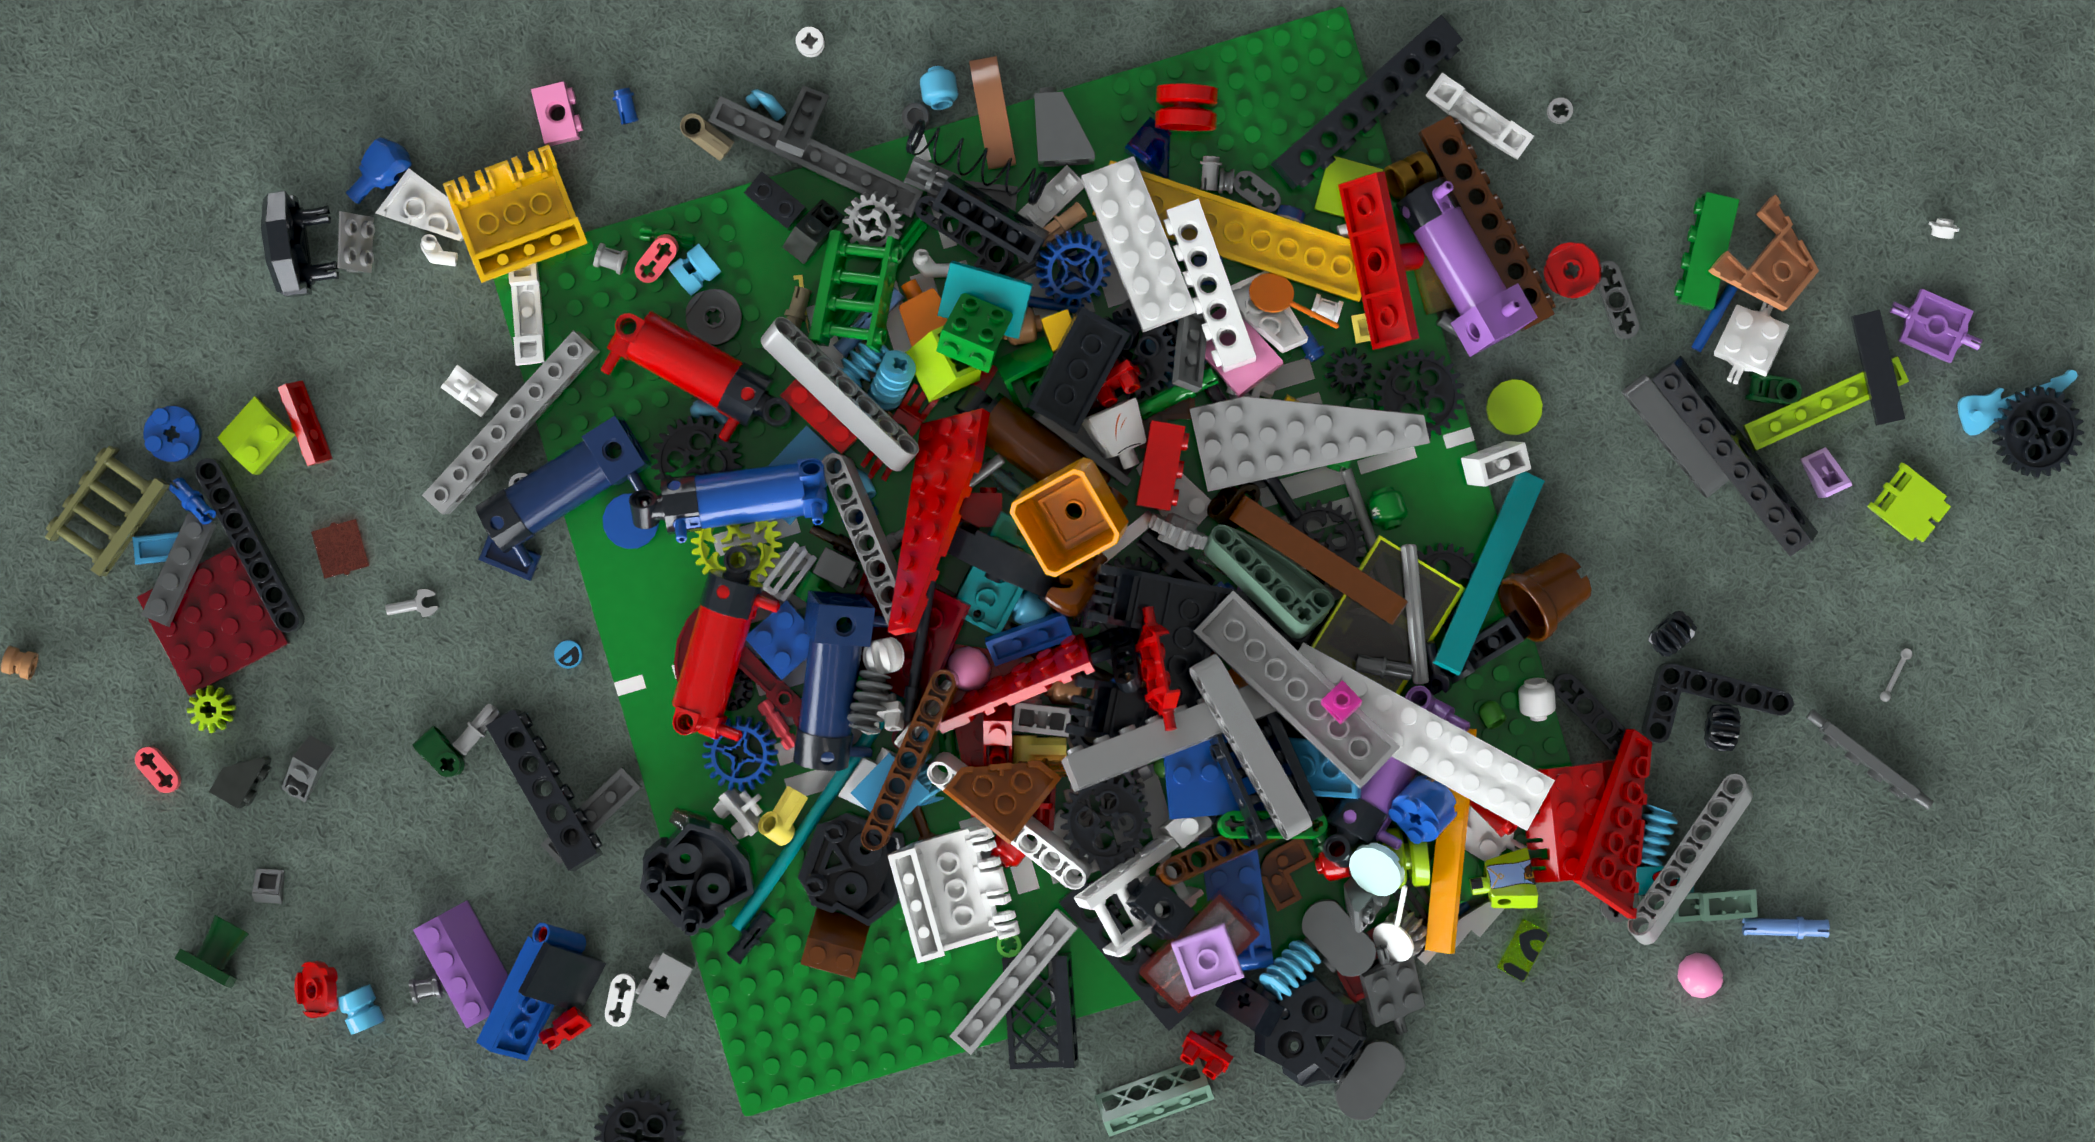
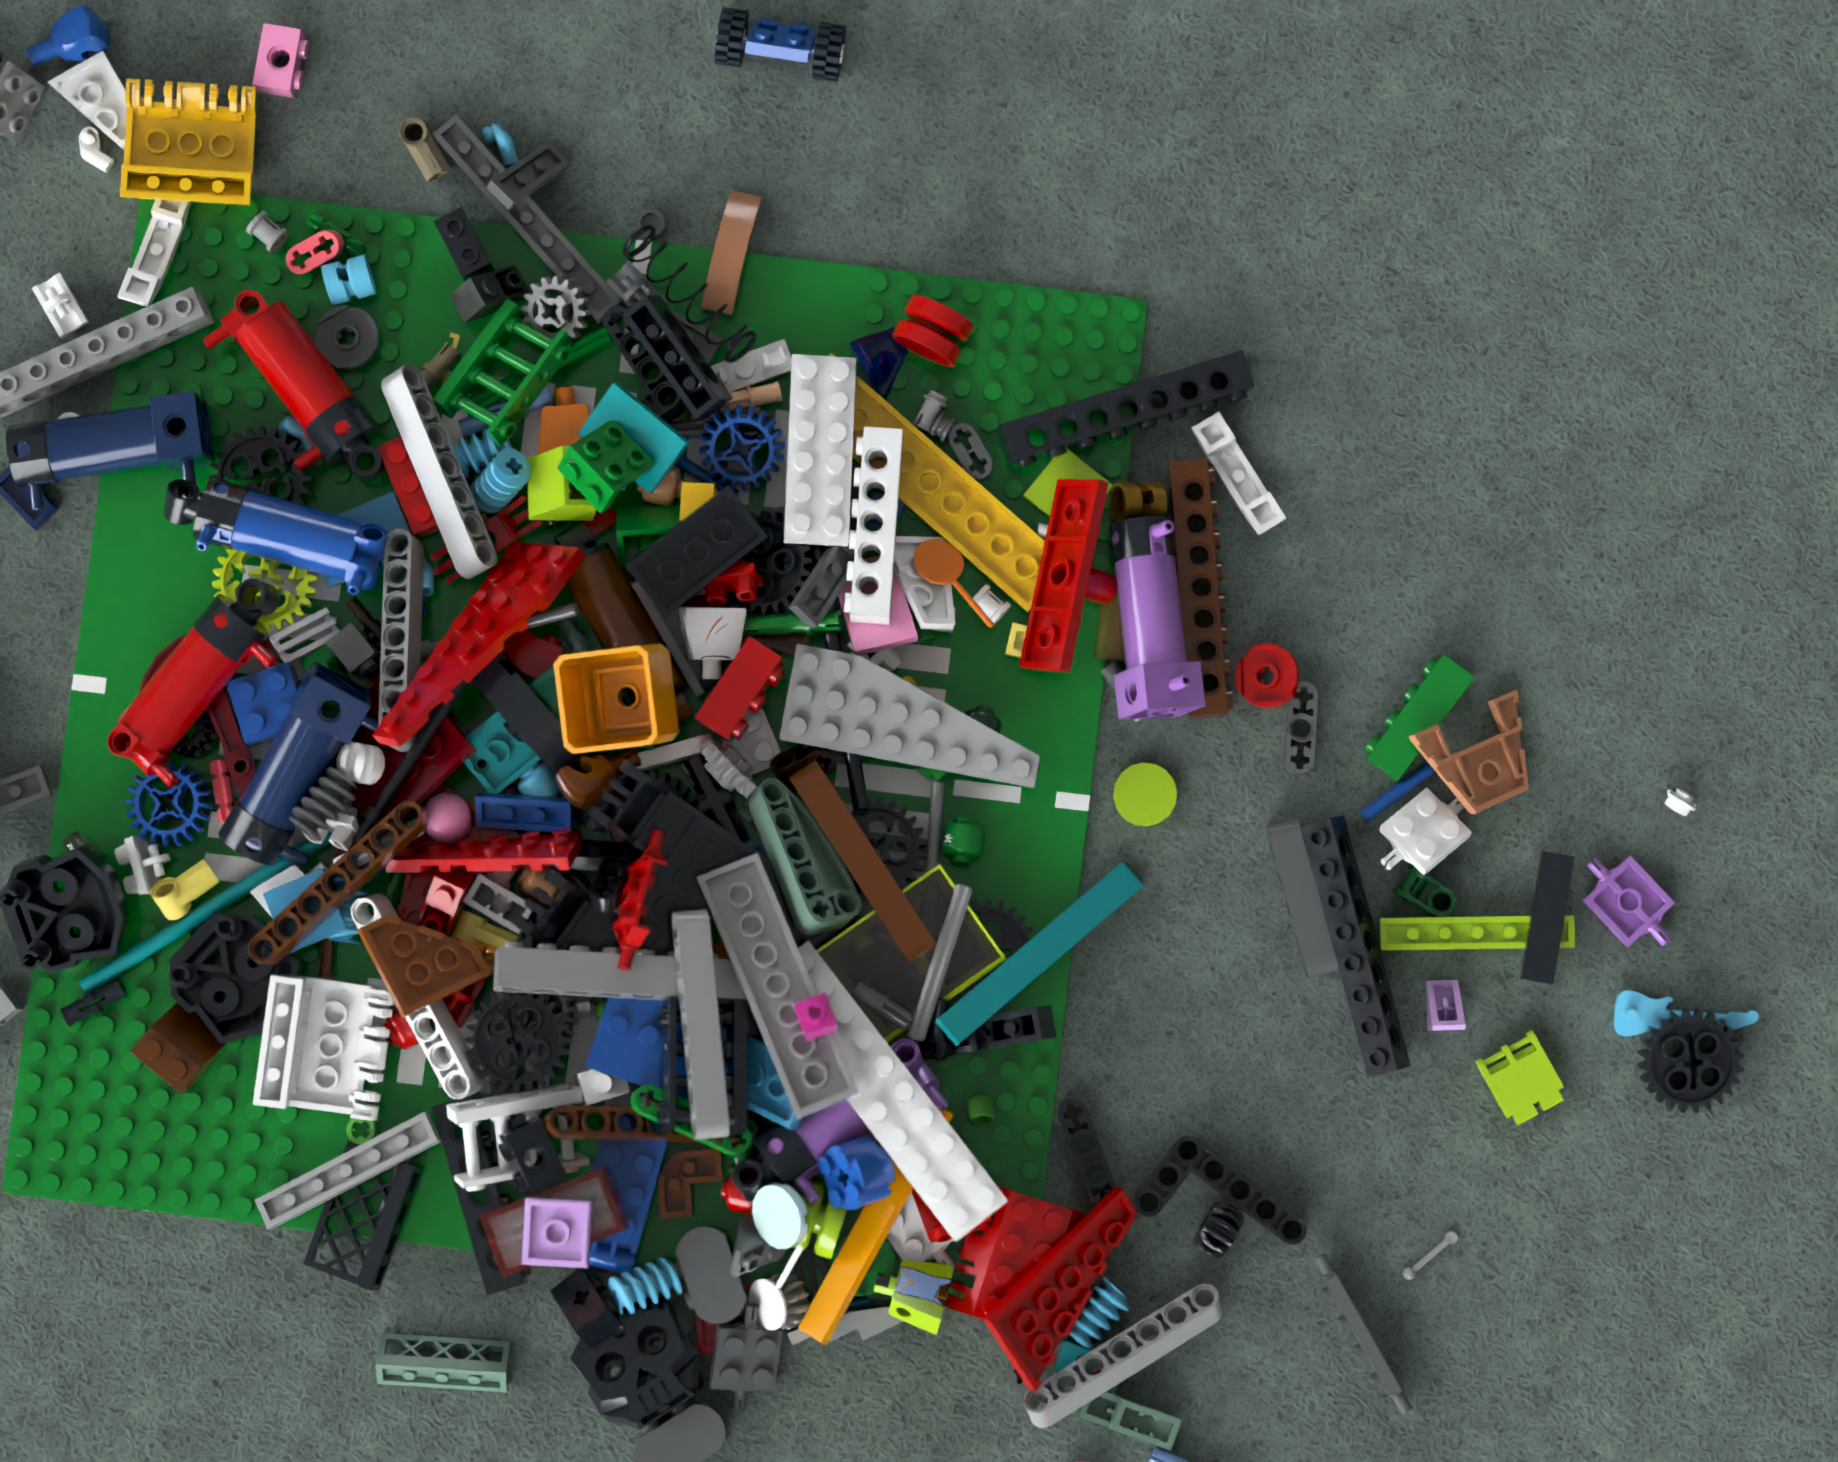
camera: 25 degrees right, 5 degrees down
(568, 654) = (39, 623): dark azure tile -> none
(620, 527) = (150, 516): blue tile -> none
(625, 105) = (355, 83): blue pin -> none
(812, 46) = (575, 106): white wheel -> none
(927, 266) = (592, 379): white arm -> none
(939, 88) = (687, 203): medium azure head -> none
(1059, 132) = (787, 299): dark grey slope -> none
(1209, 1049) = (524, 1336): red hips -> none
(1291, 213) = (996, 488): dark blue tile -> none
(1312, 348) = (956, 637): blue pin -> none
(1347, 361) = (990, 669): black gear -> none
(1443, 389) = (1076, 742): black gear -> none
(1496, 463) = (1098, 843): white brick -> none
(1523, 950) = (905, 1376): slope -> none
(1537, 699) = (1034, 1112): white head -> none
(1545, 594) = (1089, 1003): reddish brown piece -> none
(1557, 102) = (1327, 494): light grey bush -> none
(1672, 633) = (1208, 1105): black gear -> none

